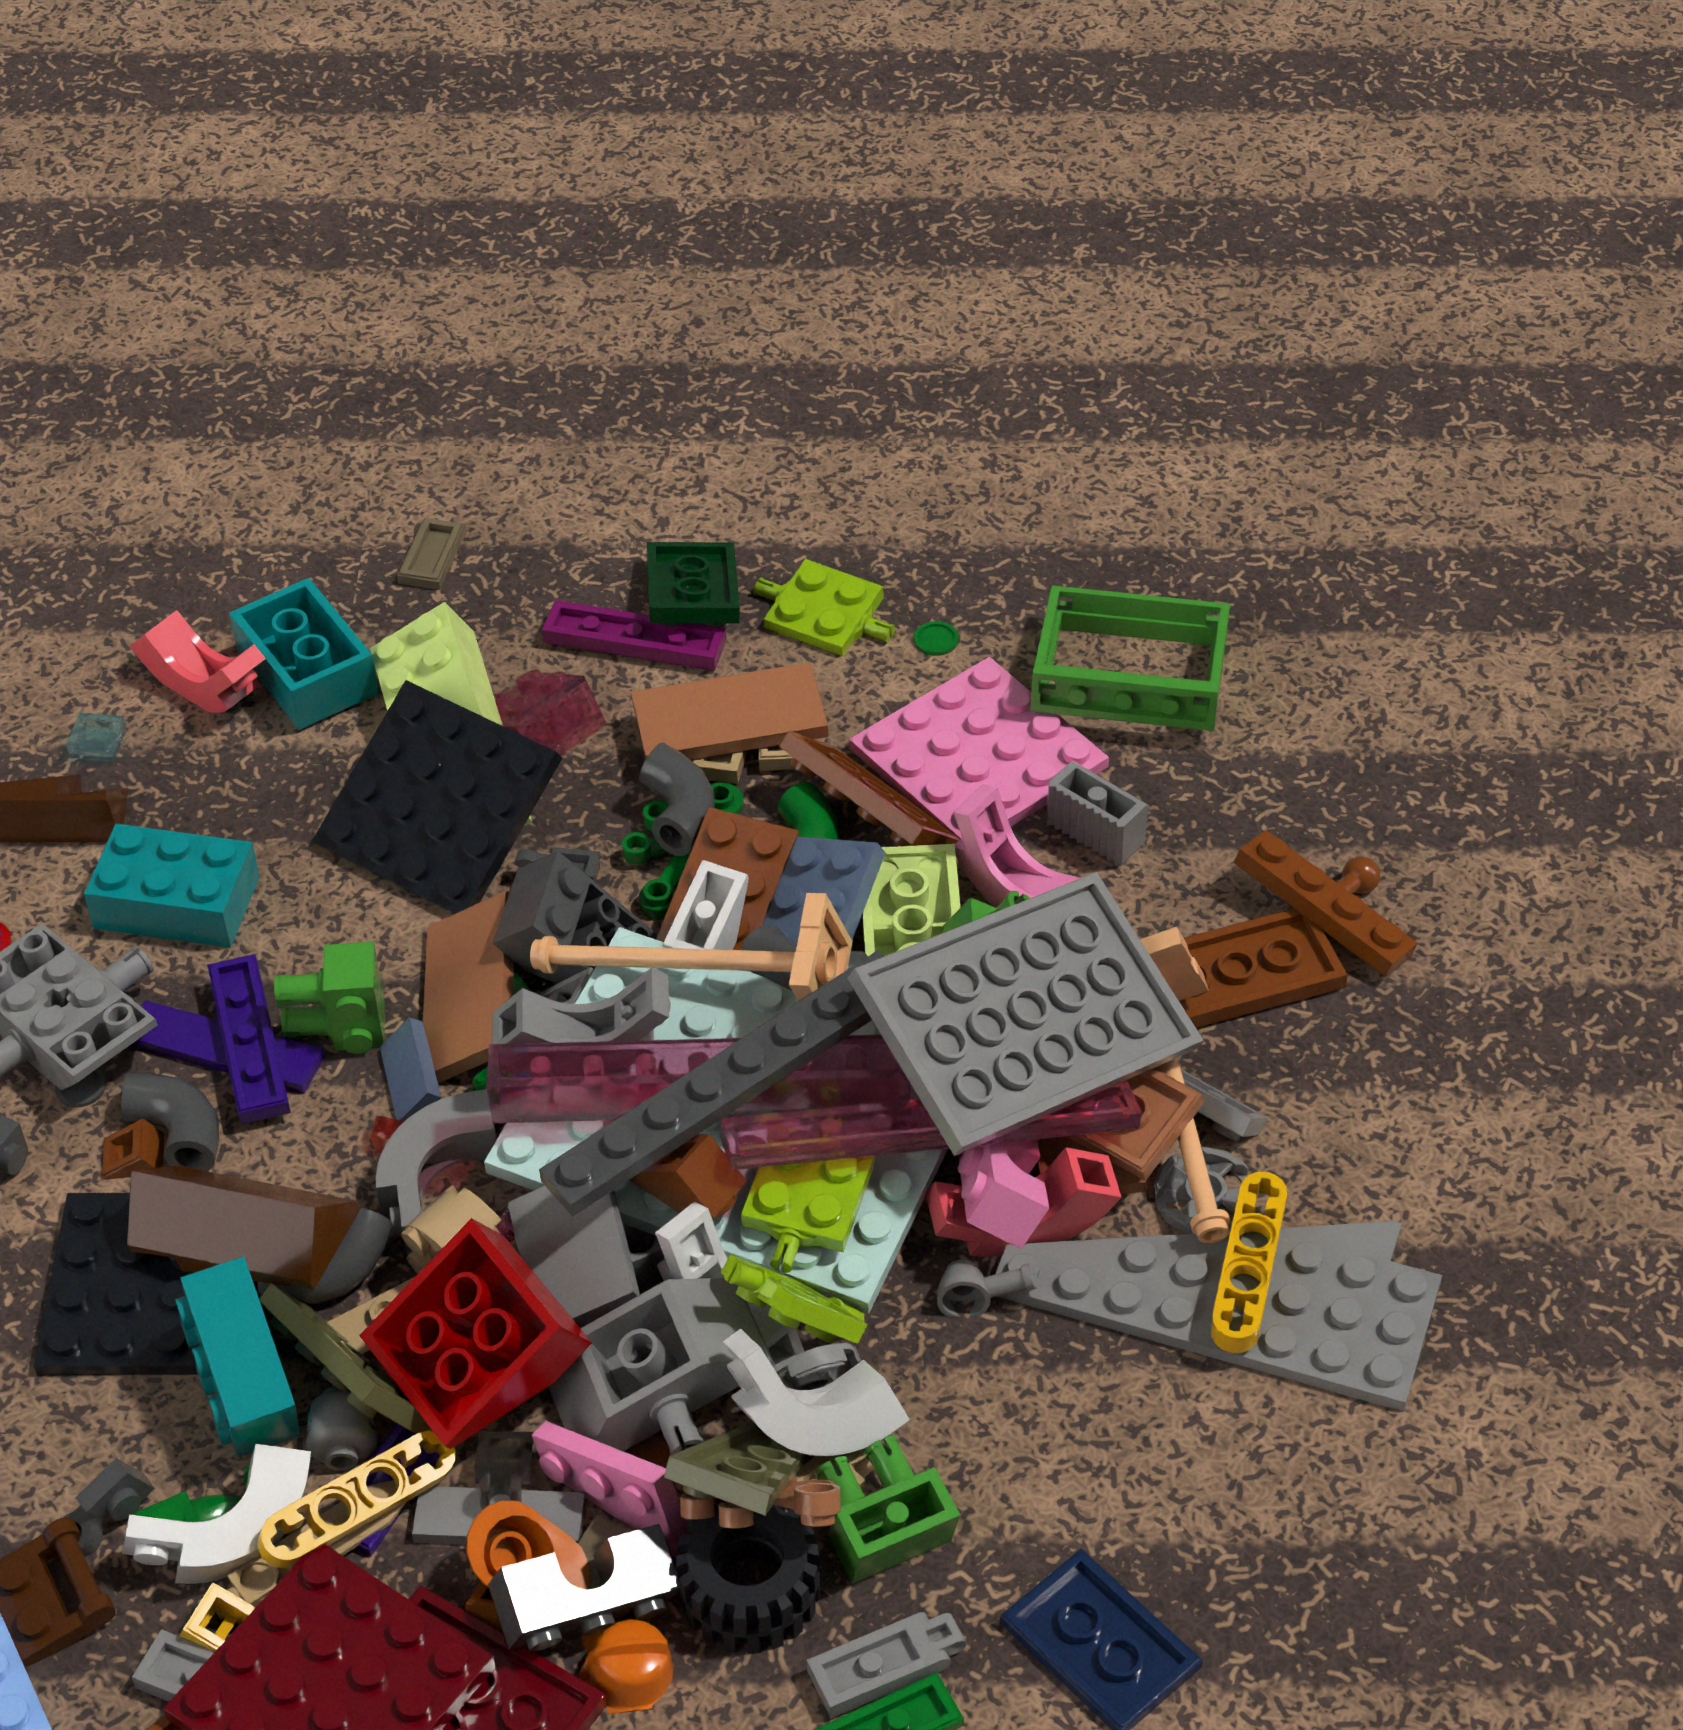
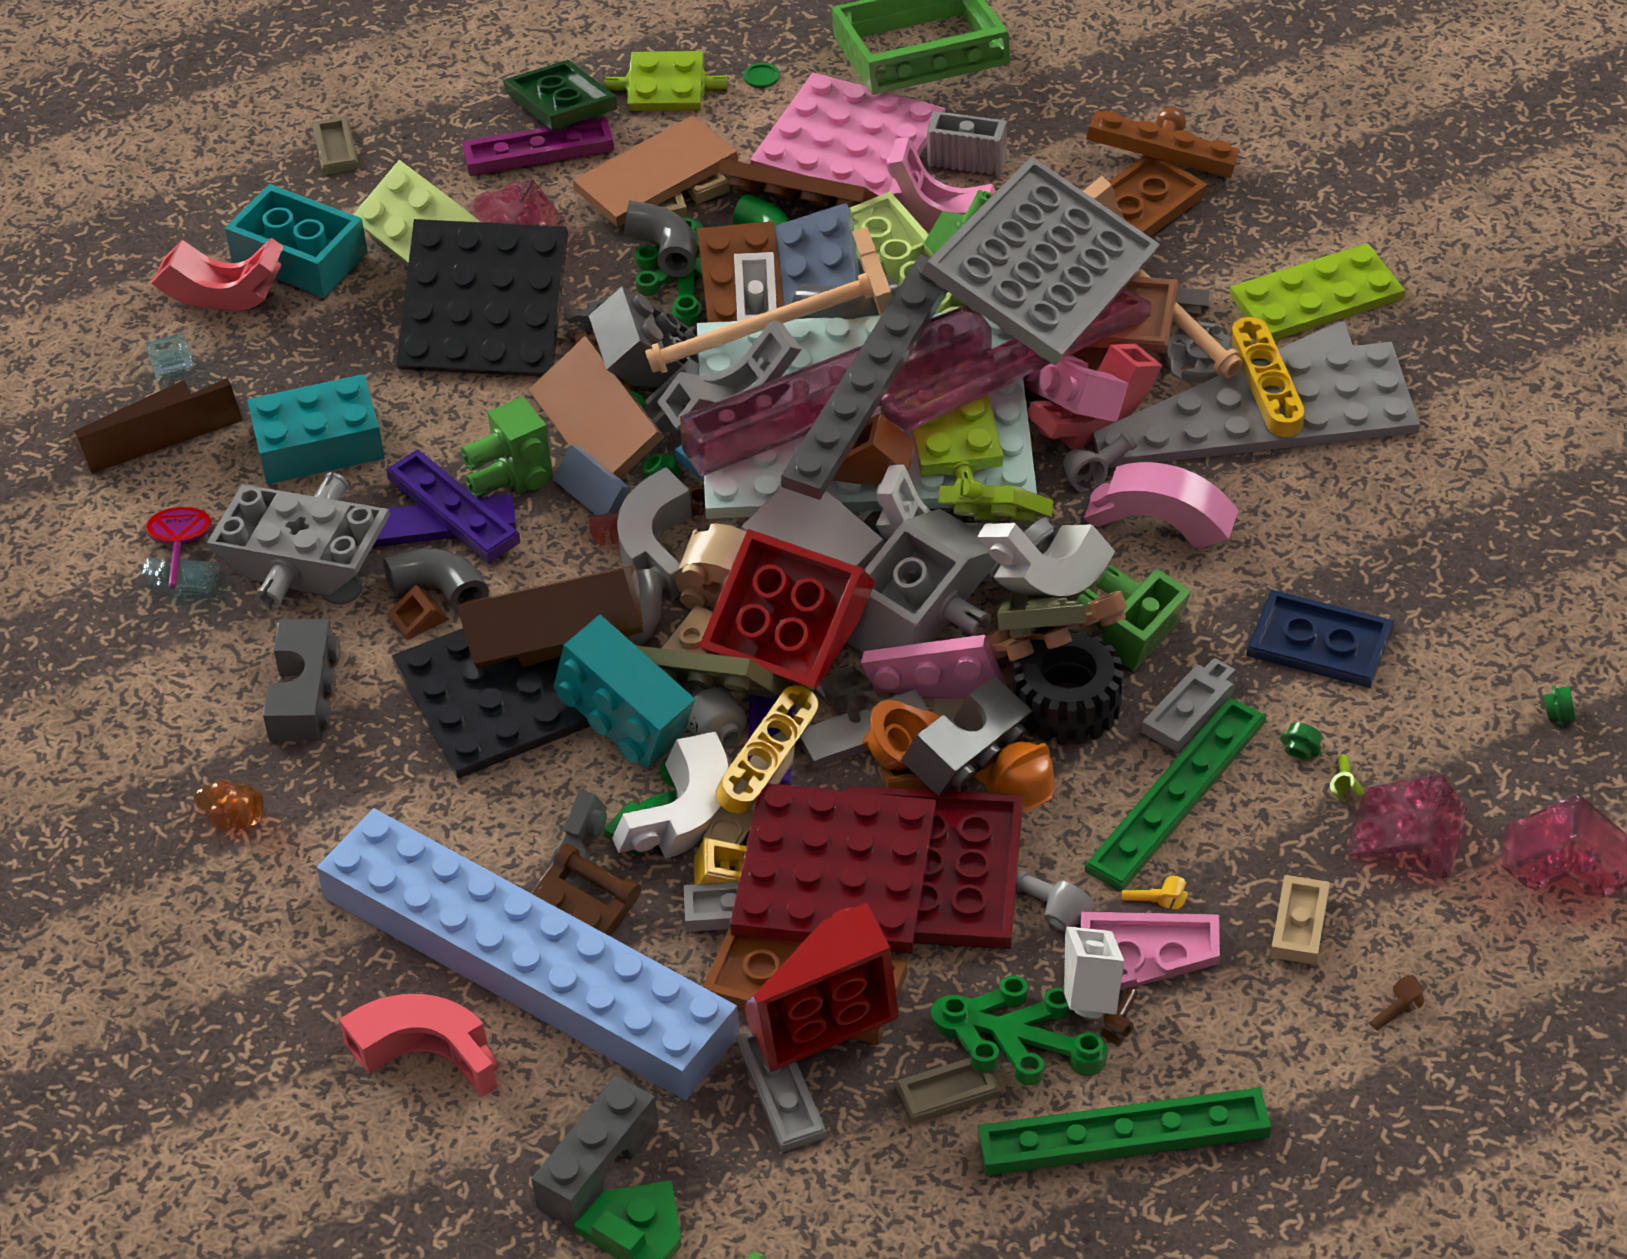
camera: 25 degrees left, 0 degrees up
(1023, 1376) = (1166, 493): none -> bright pink arch
(1396, 1170) = (1318, 291): none -> lime plate

